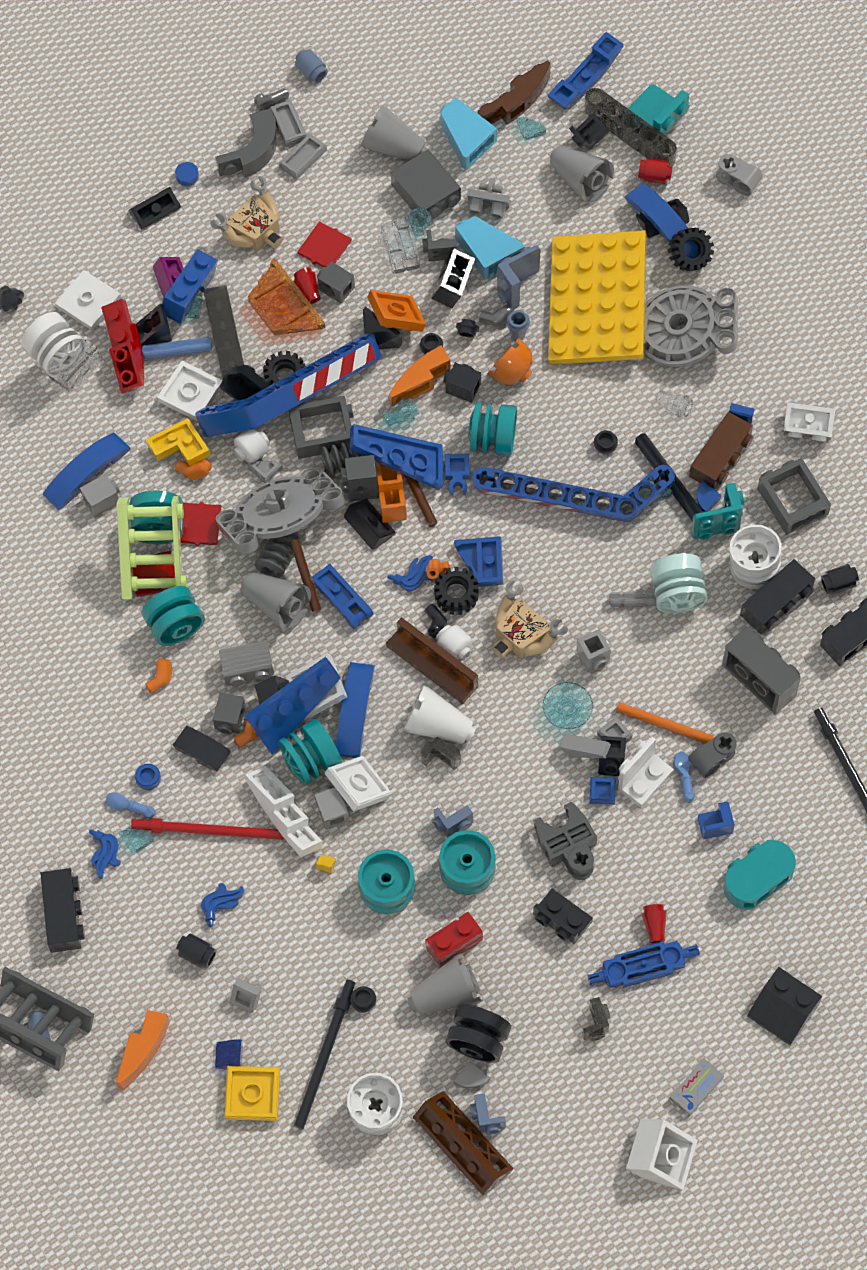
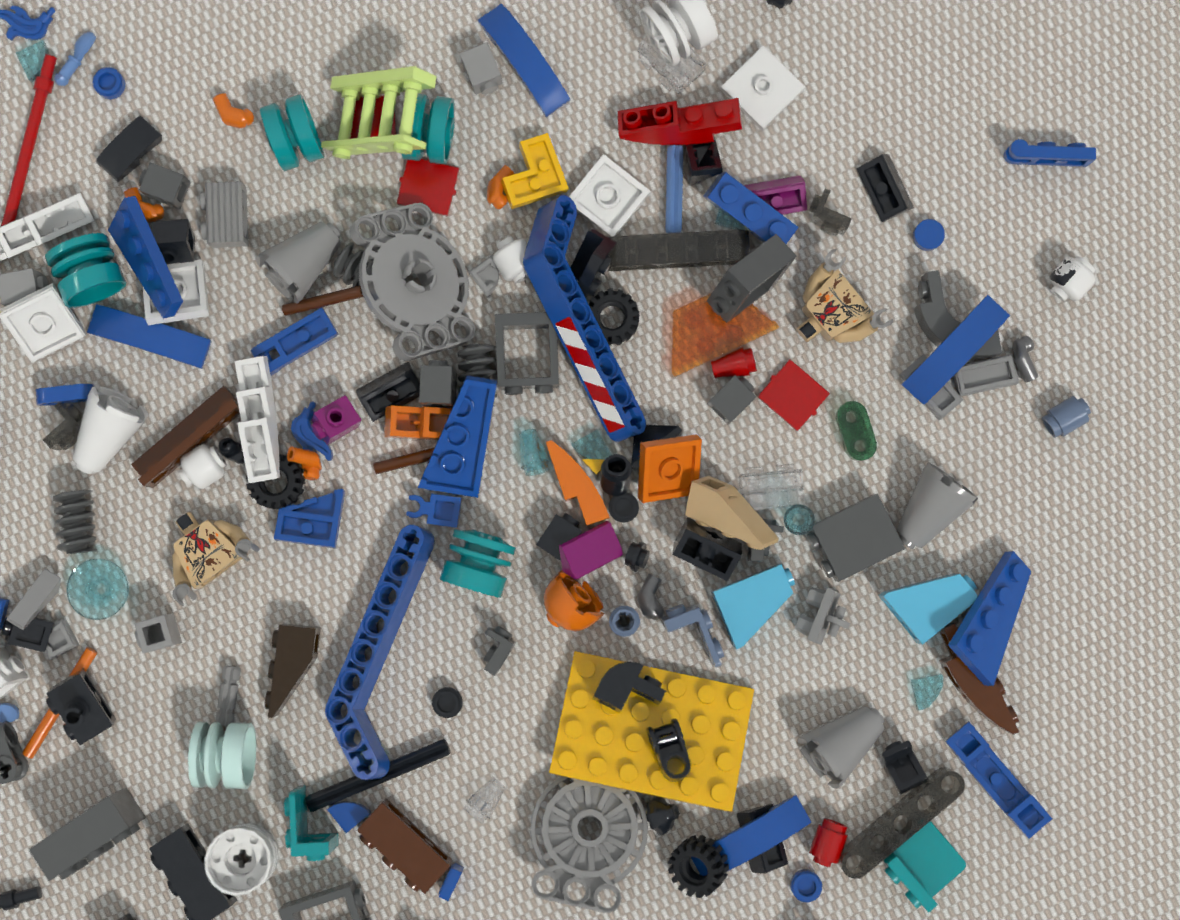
camera: 100 degrees right, 20 degrees up
(114, 103) = (1049, 154): none -> blue plate
(186, 237) = (829, 220): none -> clear smoke bracket
(207, 74) = (1072, 278): none -> white head
(242, 272) = (751, 278): none -> dark grey window
(276, 135) = (956, 350): none -> blue slope
(344, 199) = (857, 431): none -> clear green plate
(388, 374) = (592, 446): none -> clear light blue tile
(399, 551) = (335, 420): none -> magenta brick
(402, 366) = (594, 464): none -> yellow piece
(407, 347) = (615, 475): none -> black brick
(409, 604) = (258, 419): none -> white slope
(414, 759) = (65, 394): none -> blue beam
(420, 269) = (725, 509): none -> tan slope
(470, 355) = (590, 550): none -> magenta slope
(472, 88) = (989, 623): none -> blue wing
(517, 730) = (74, 522): none -> dark grey piece
(560, 408) = (497, 655): none -> dark grey bracket
(565, 314) = (623, 679): none -> black brick
(594, 552) = (294, 656): none -> dark brown slope
(607, 273) = (669, 748): none -> black piece
(658, 280) = (661, 815): none -> black piece
(663, 698) = (80, 707): none -> black brick
(690, 184) = (806, 885): none -> blue tile

